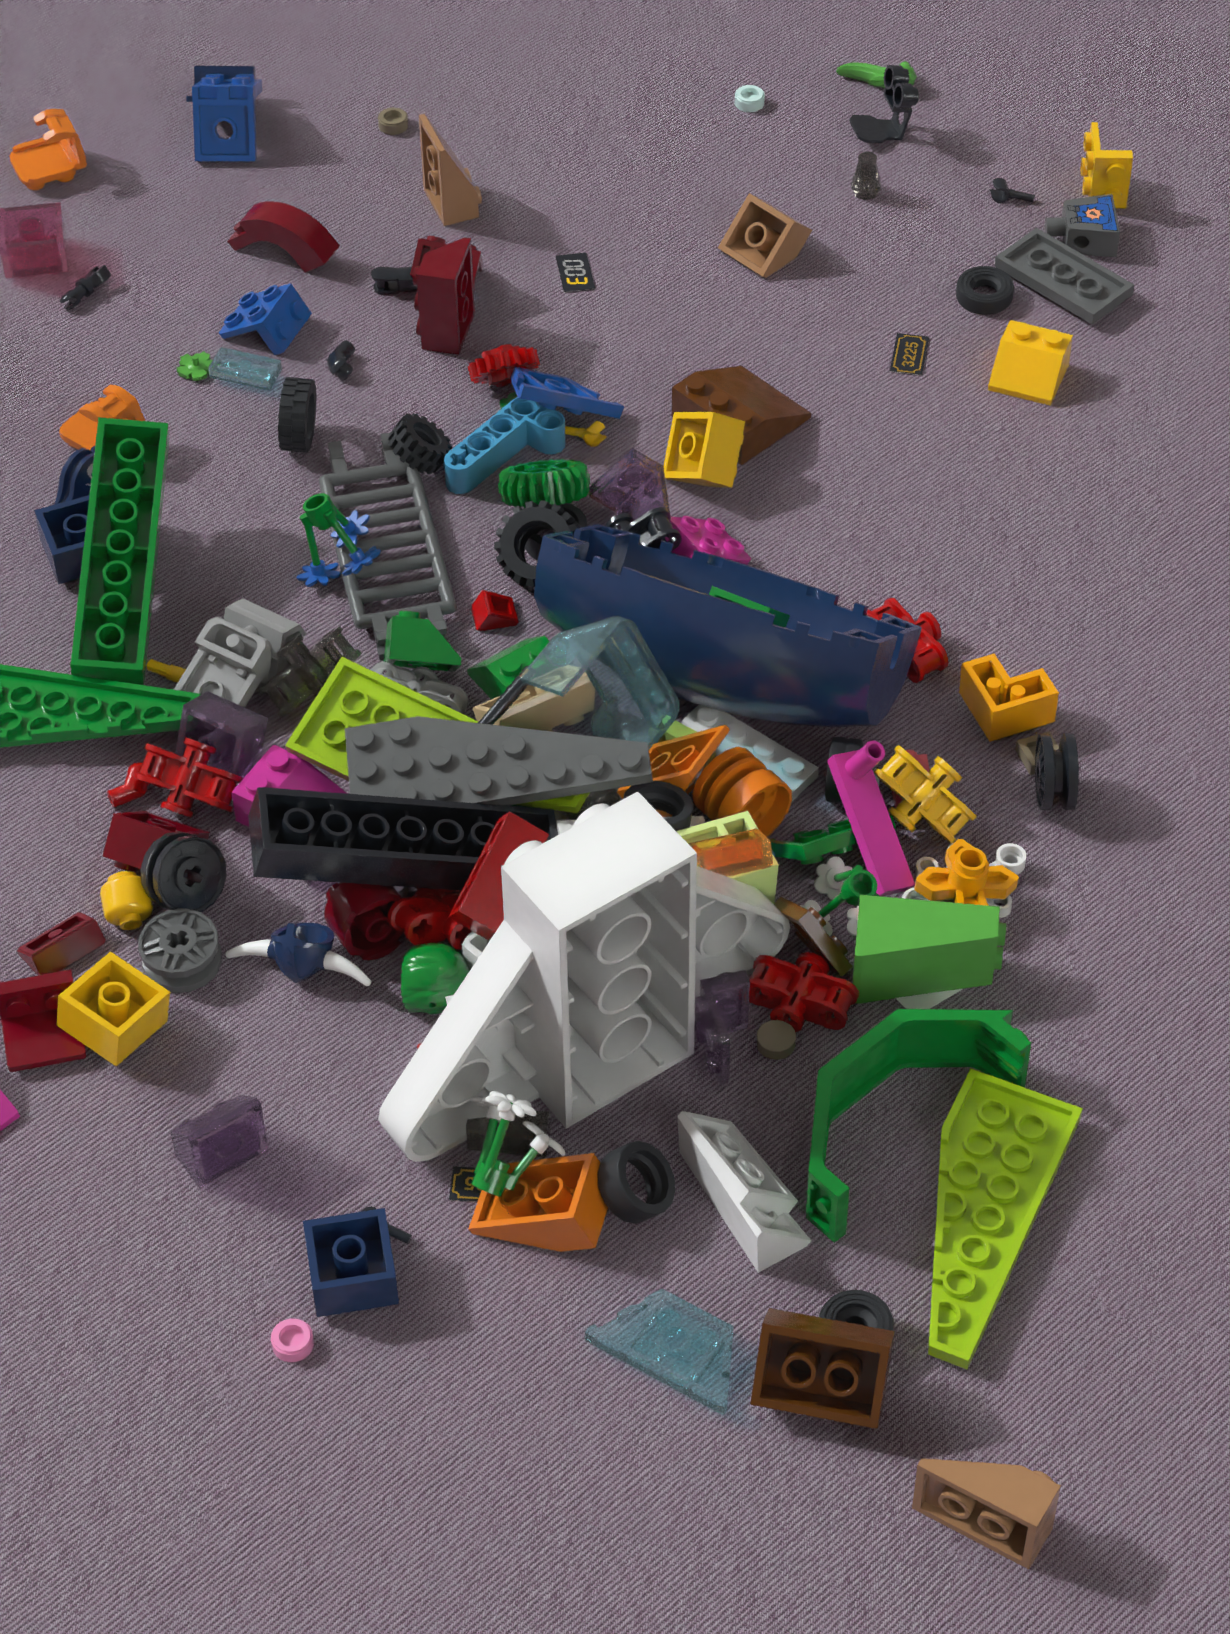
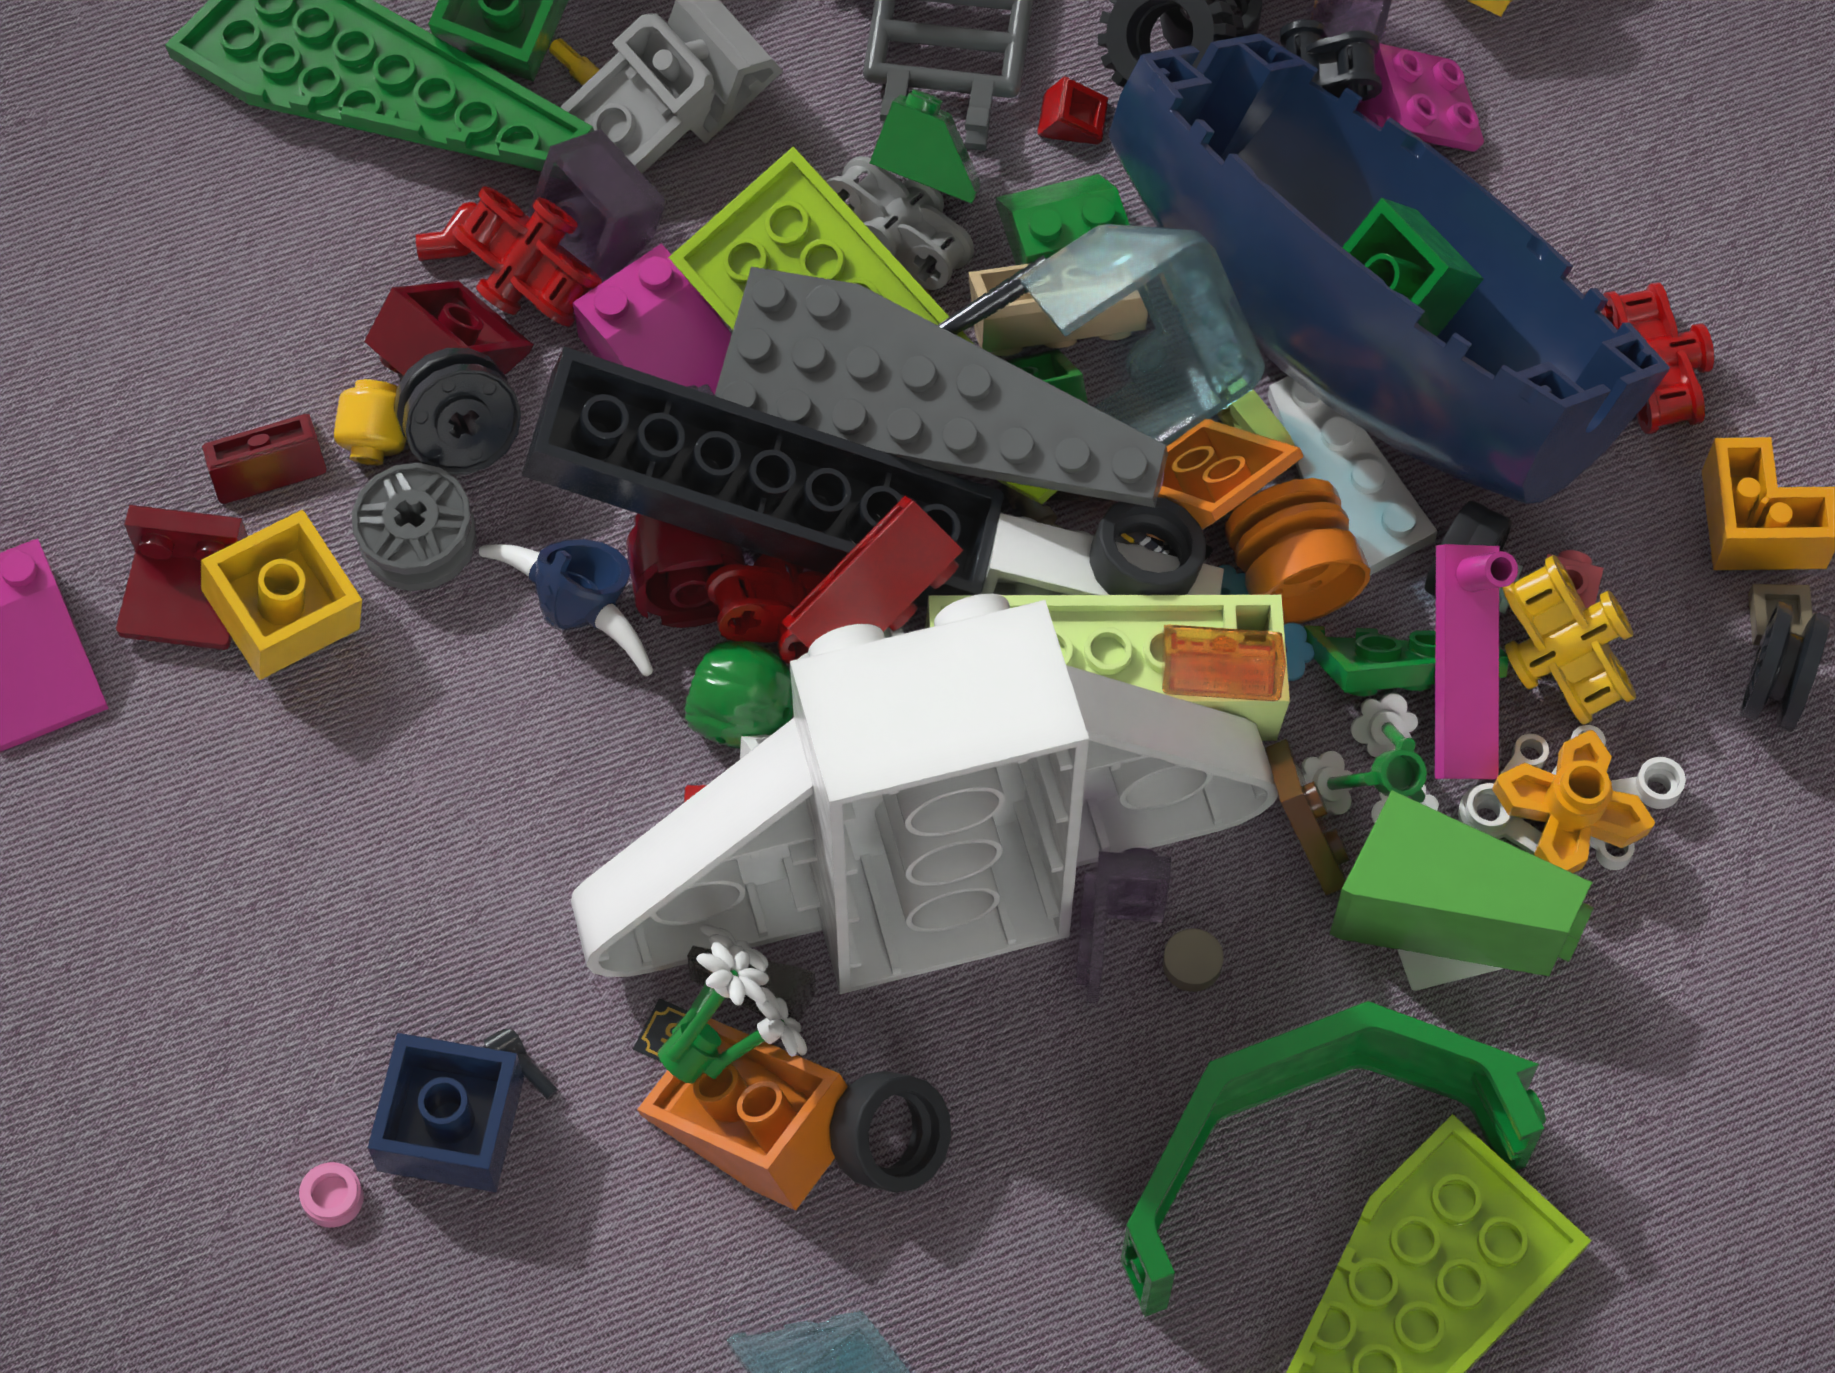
camera: 20 degrees right, 15 degrees up
(221, 1139) = (348, 849): clear purple slope -> none
(300, 679) = (760, 132): clear smoke axle -> none
(741, 1188) = (1047, 1187): white slope -> none
(801, 991) = (1257, 897): red axle -> none

